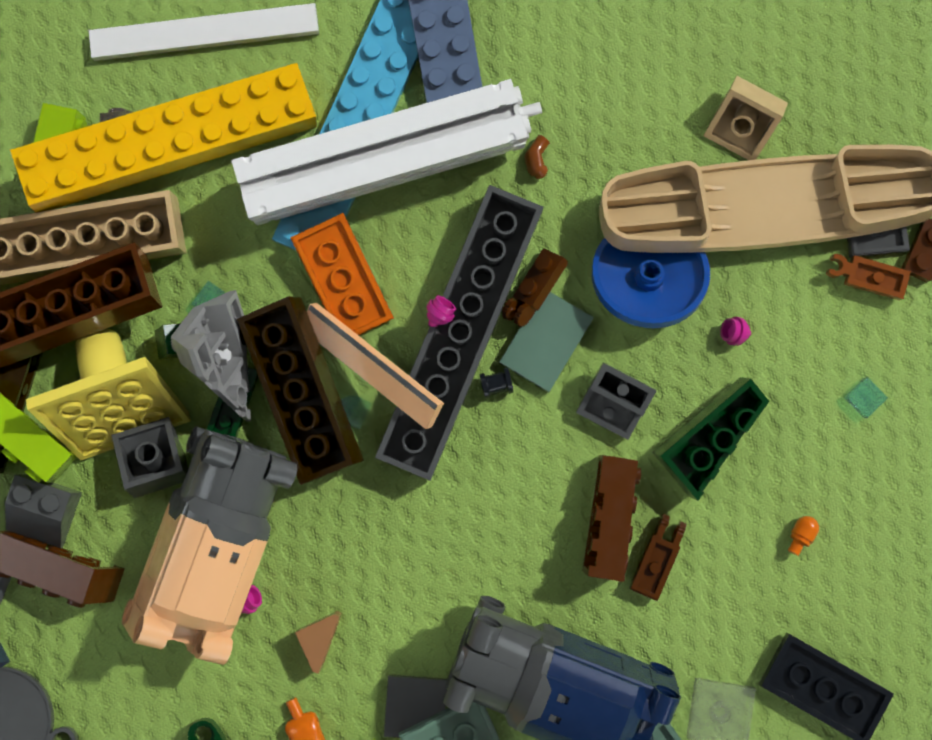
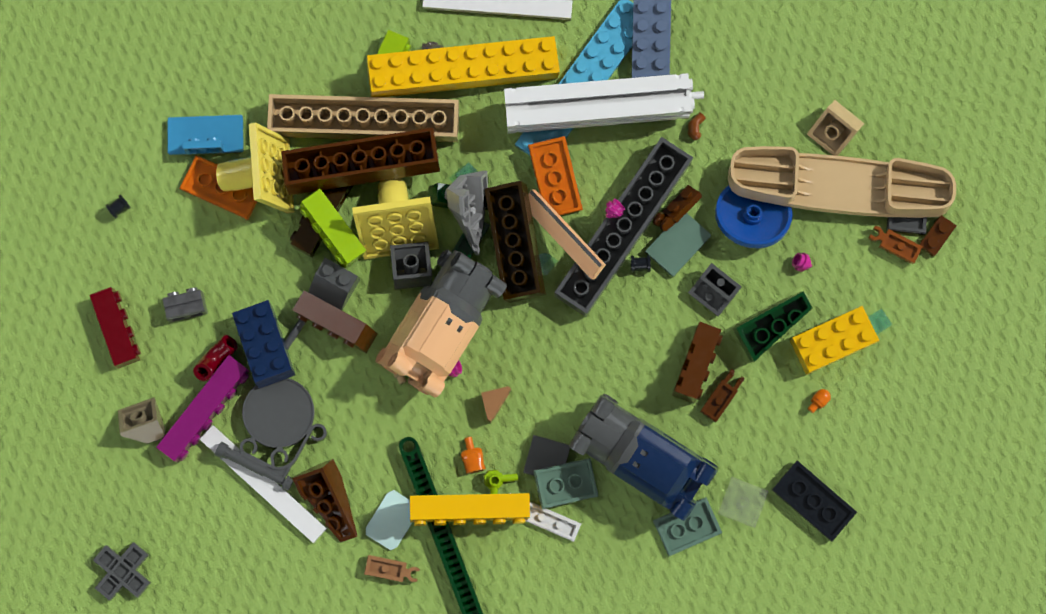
camera: 15 degrees right, 5 degrees down
(809, 440) = (834, 340): none -> yellow brick

